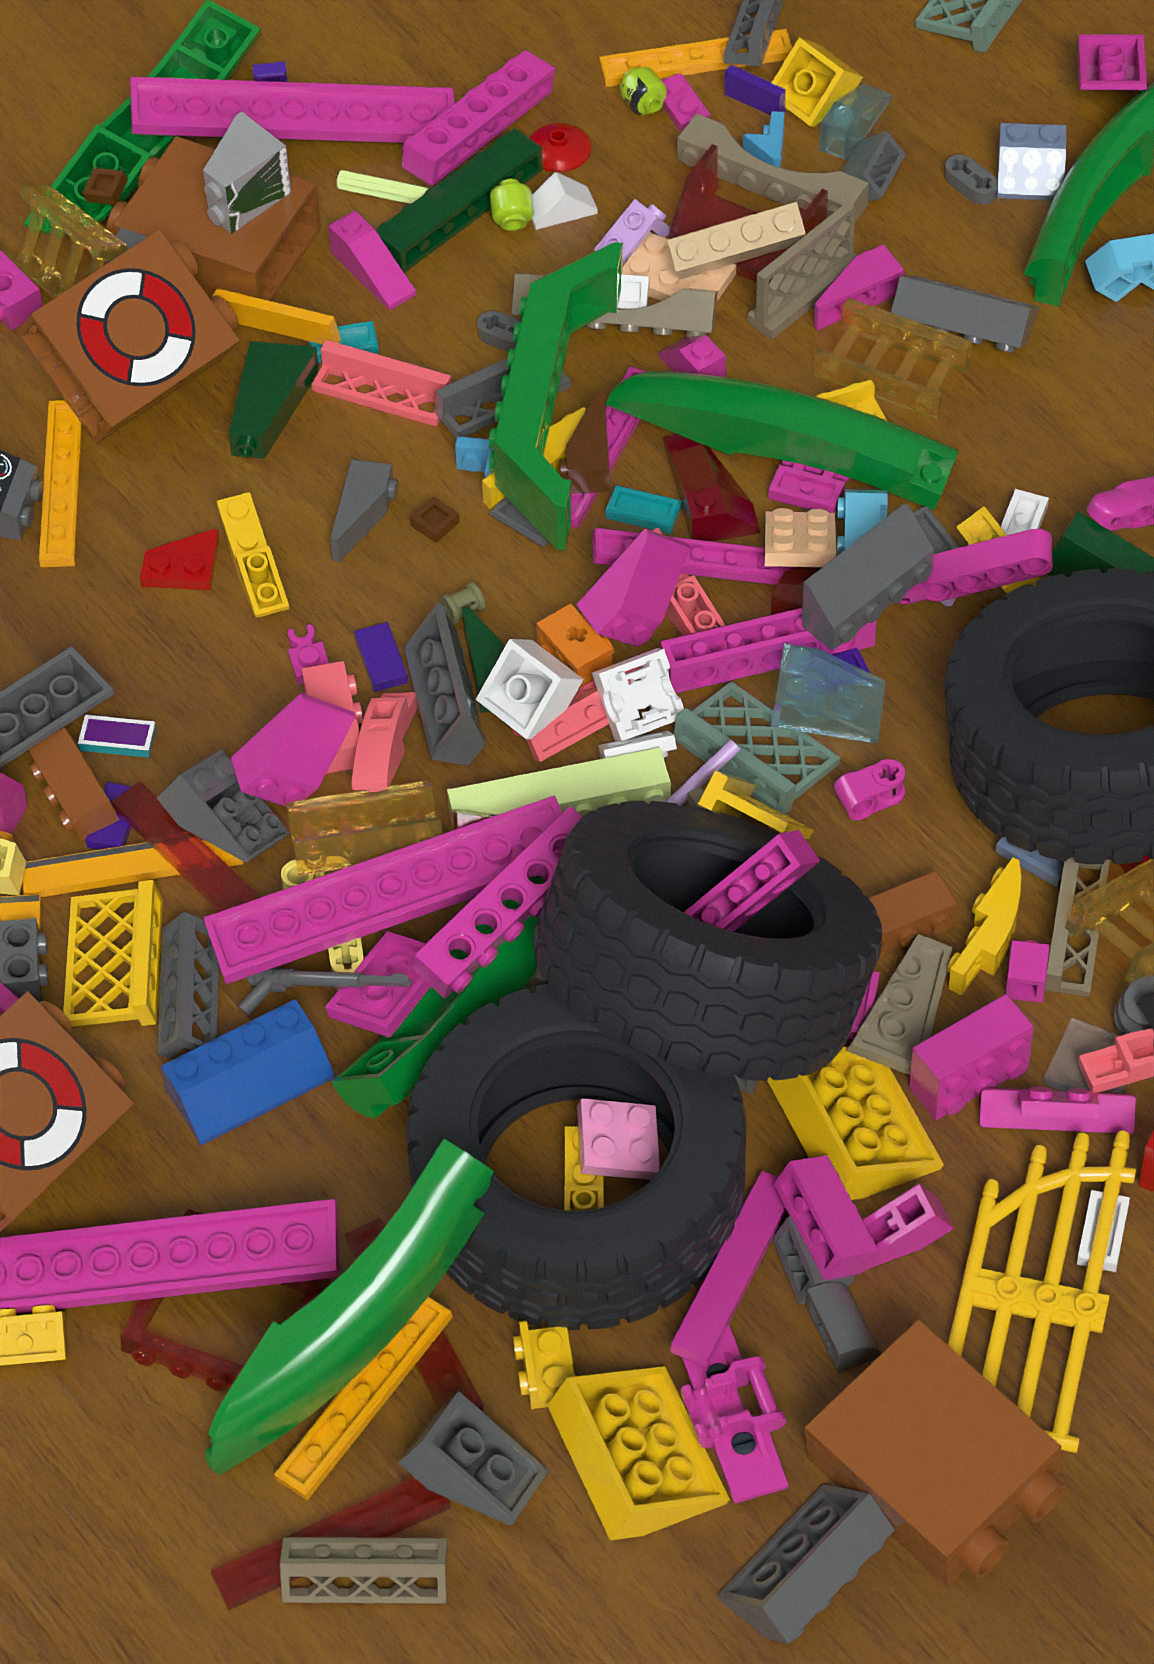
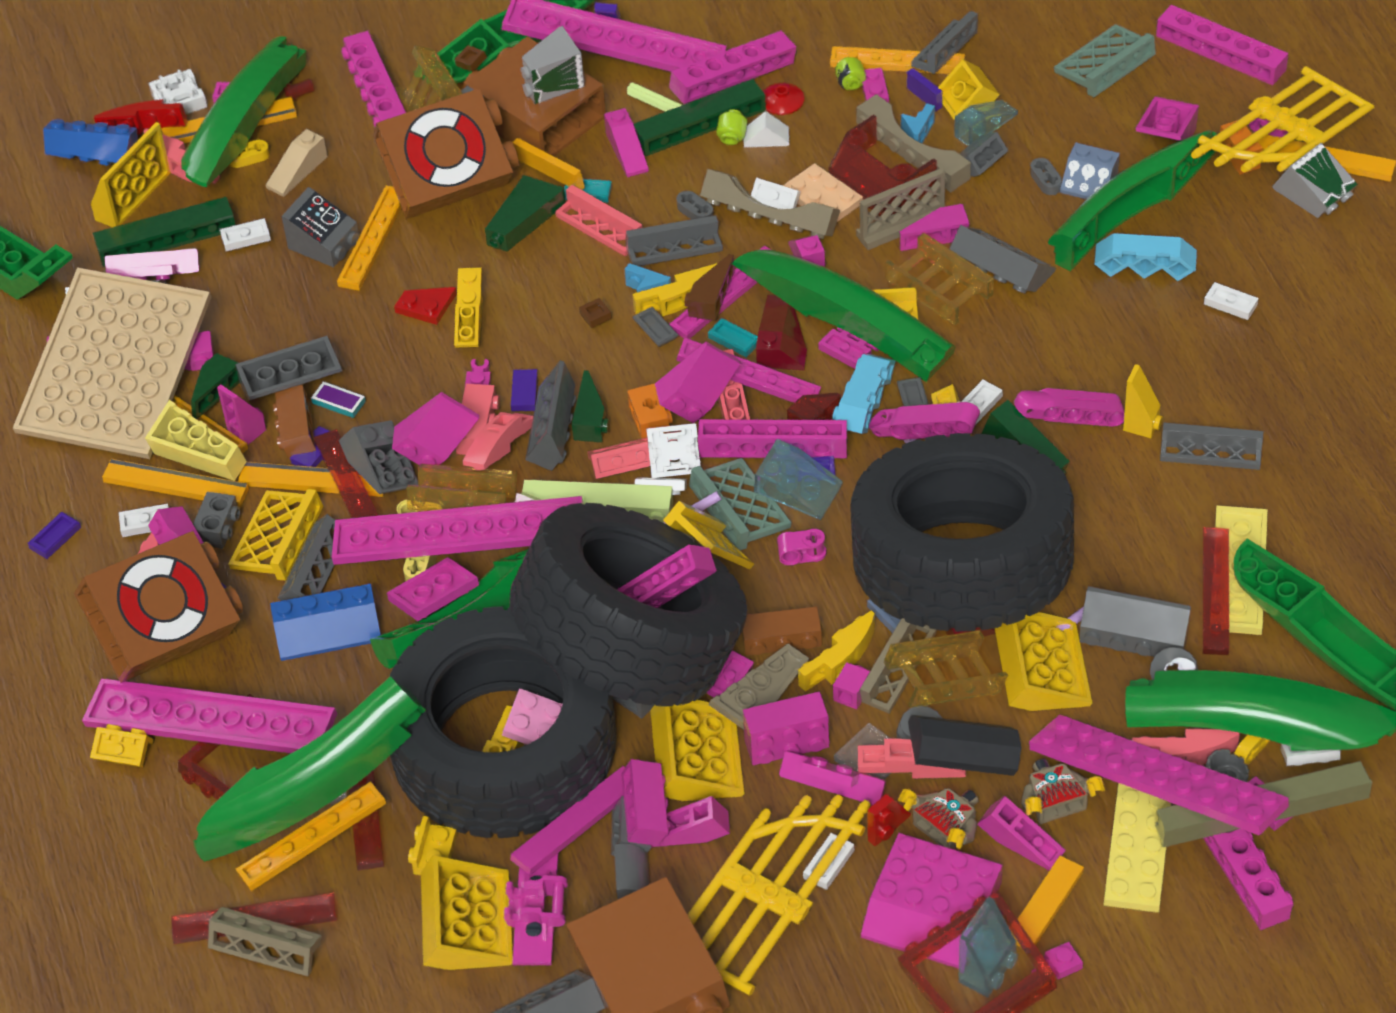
camera: 20 degrees right, 5 degrees down
(279, 979) = (369, 570): dark grey piece -> none
(362, 504) = (552, 293): dark grey slope -> none
(449, 974) = (481, 564): dark pink brick -> none
(467, 597) = (594, 366): olive bush -> none
(473, 1461) = (358, 893): dark grey slope -> none
(524, 417) = (690, 234): green slope -> none
(528, 687) = (600, 427): white slope -> none
(634, 227) = (801, 159): lavender bracket -> none
(737, 240) = (859, 178): tan brick -> none
(799, 538) = (822, 377): light nougat plate -> none
(866, 578) = (845, 408): dark grey slope -> none

